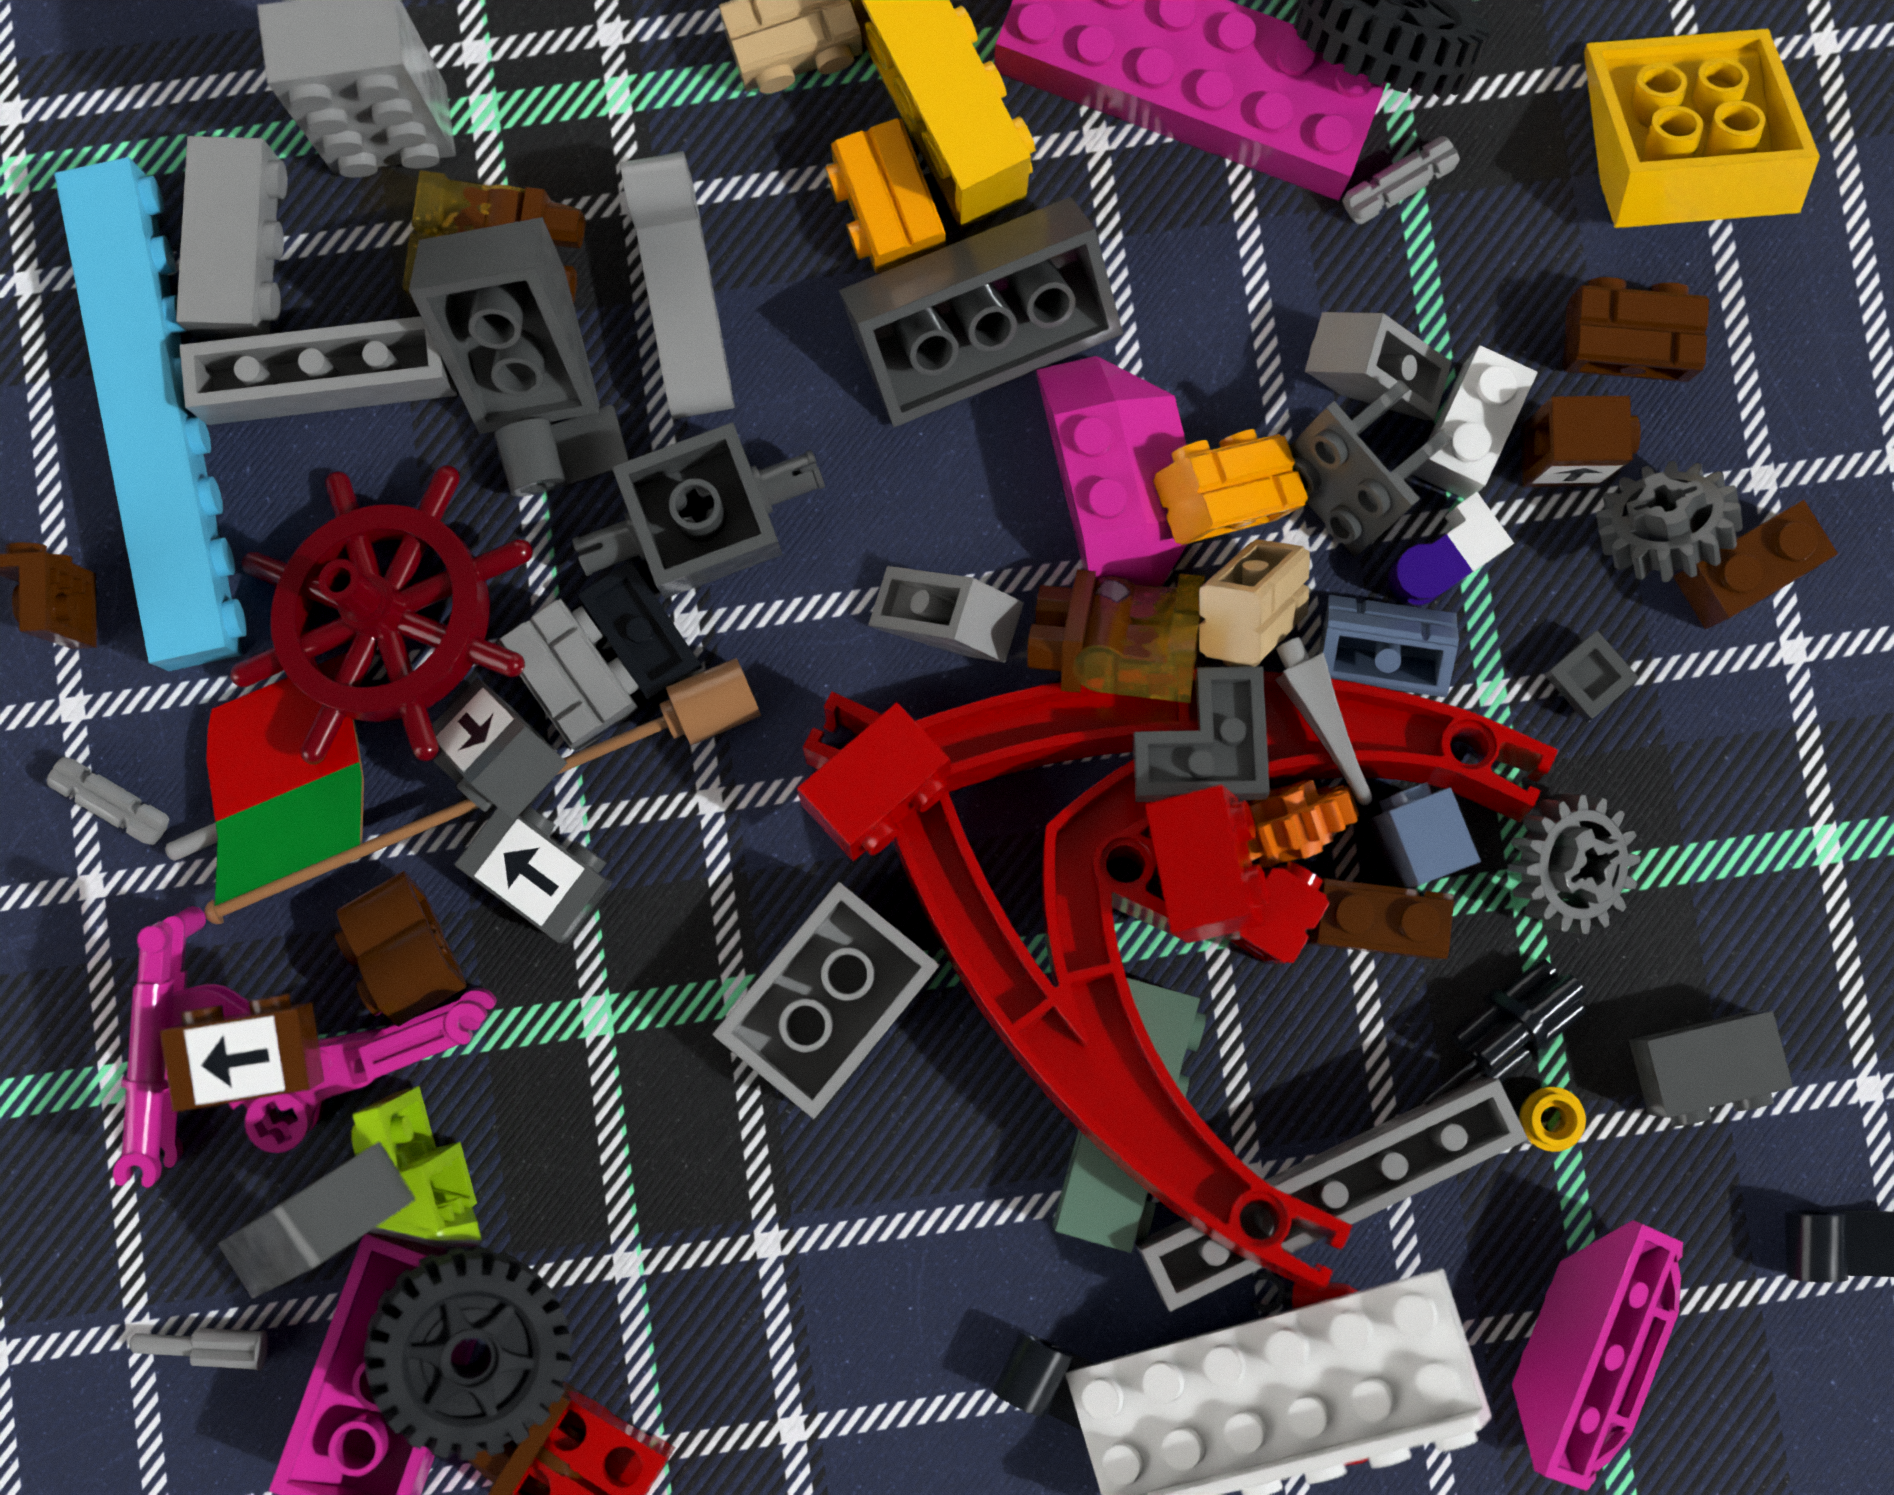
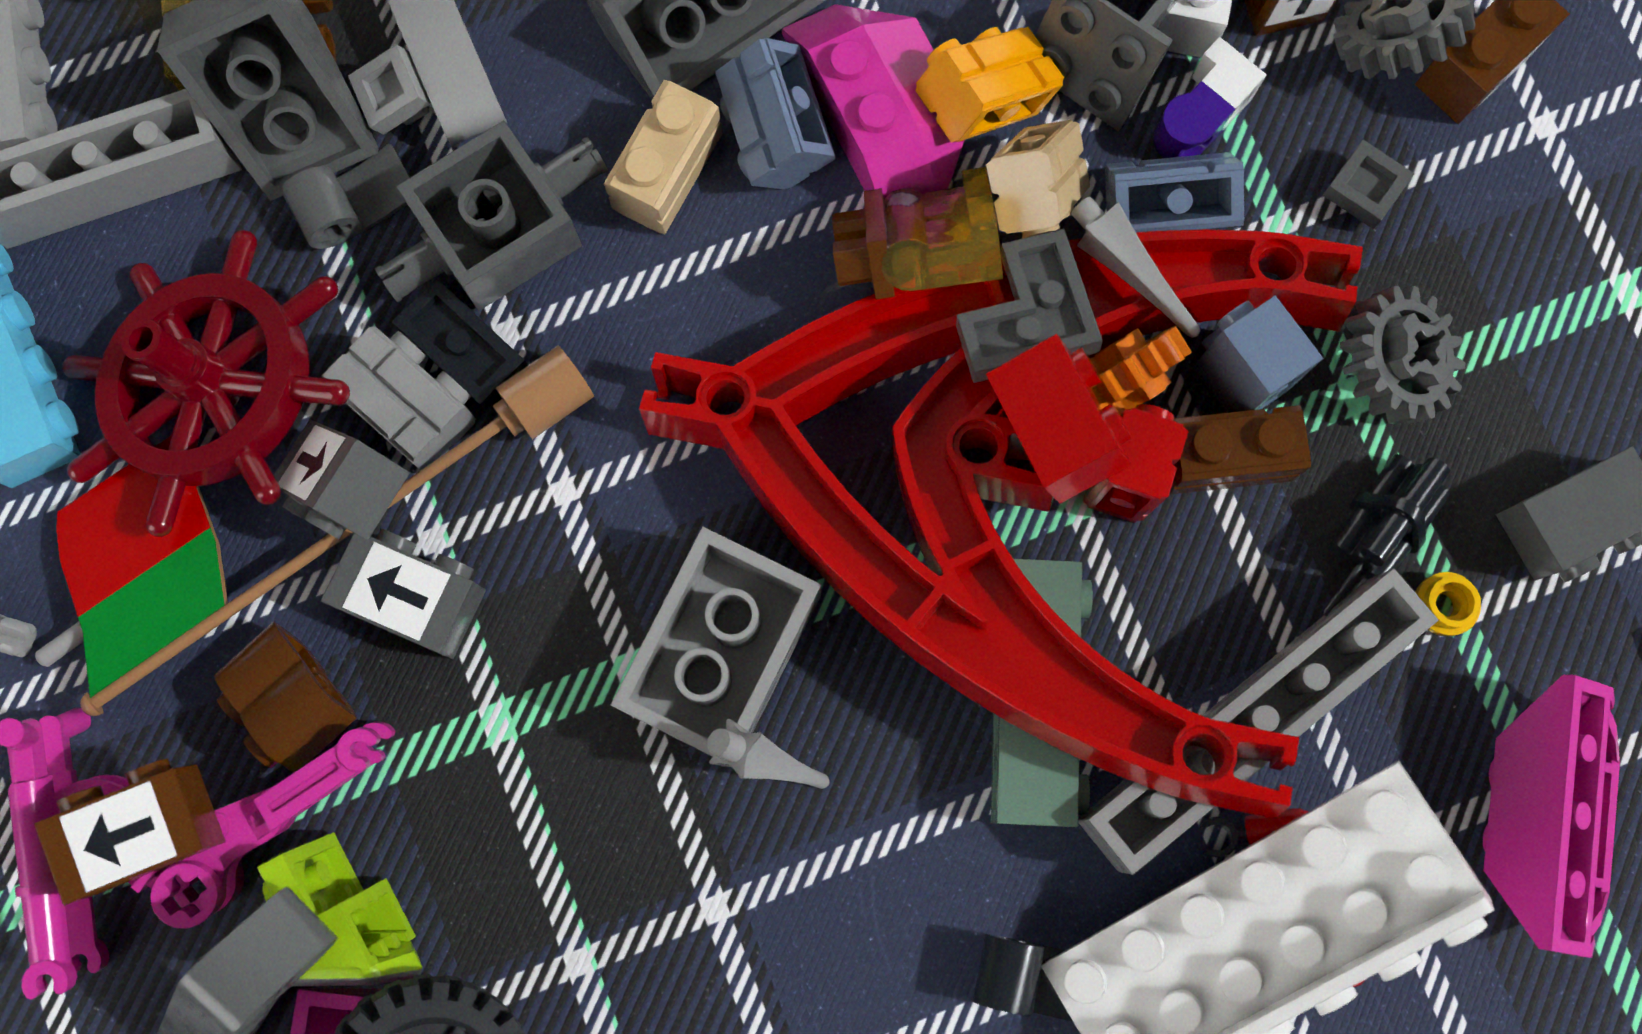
camera: 10 degrees left, 5 degrees down
(623, 352) = (390, 90): none -> light grey tile
(841, 1120) = (758, 757): none -> light grey piece
(876, 783) = (717, 419): red brick -> none
(885, 486) = (664, 157): none -> tan brick
(947, 612) = (751, 259): light grey slope -> none
(1005, 468) = (774, 114): none -> sand blue brick

